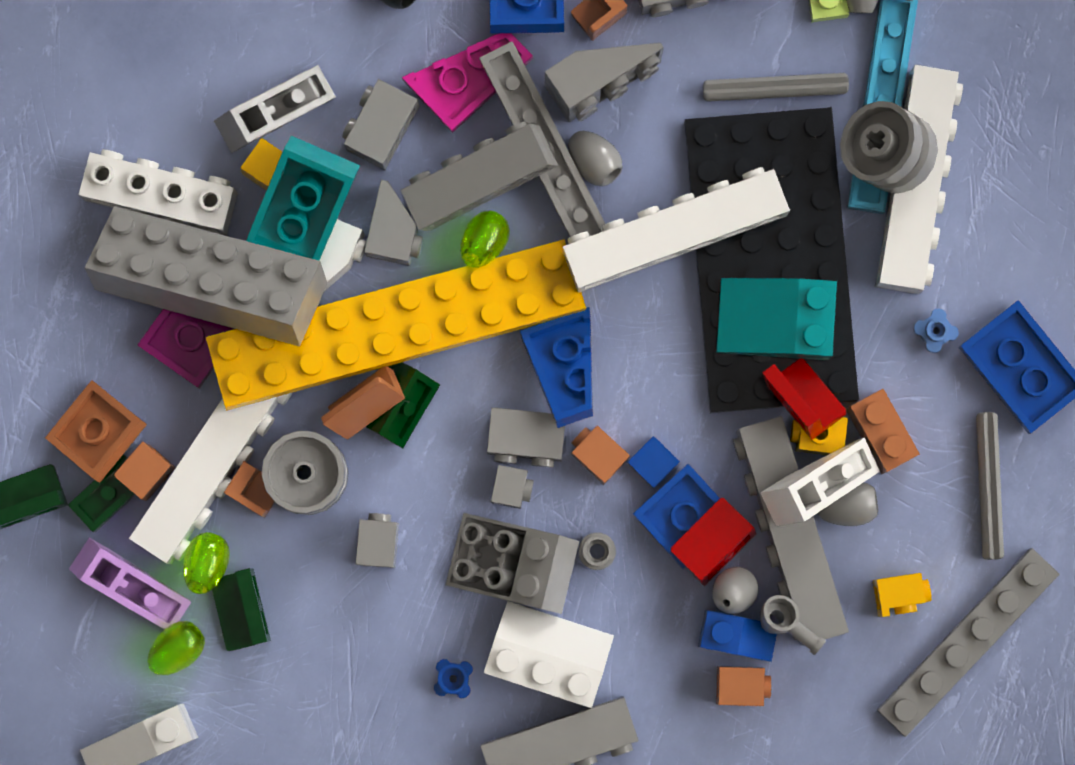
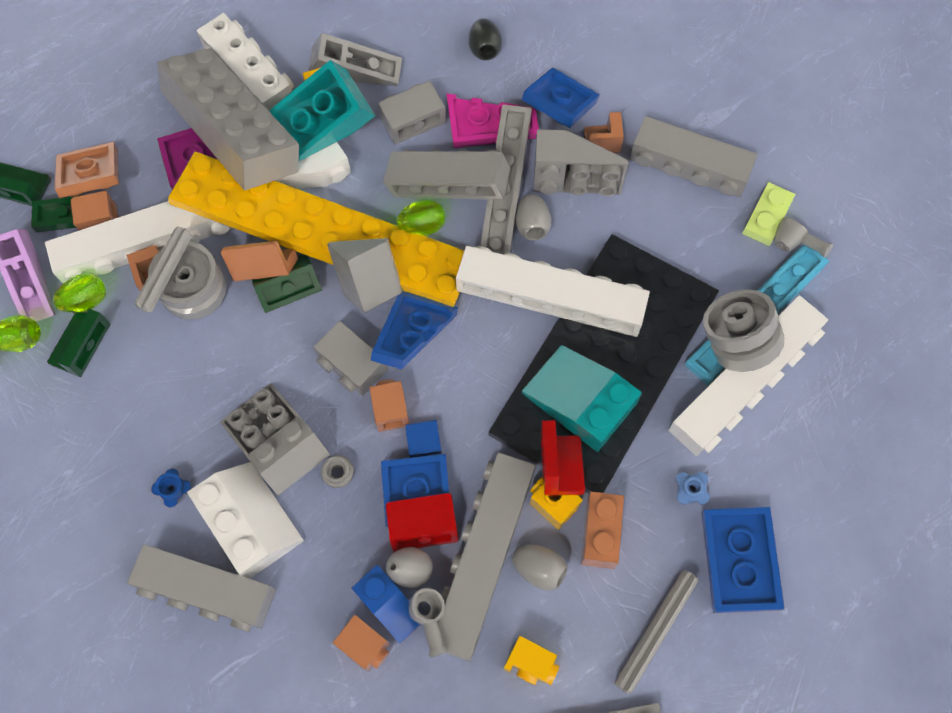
camera: 35 degrees right, 15 degrees down
(287, 483) = (163, 269): none -> light grey axle
(377, 541) = (197, 358): light grey brick -> none
(392, 230) = (366, 173): light grey slope -> none
(480, 342) = (366, 271): none -> light grey slope
(511, 487) = (312, 384): light grey plate -> none
(775, 87) = (689, 255): light grey axle -> none
(819, 483) = (528, 529): white slope -> none

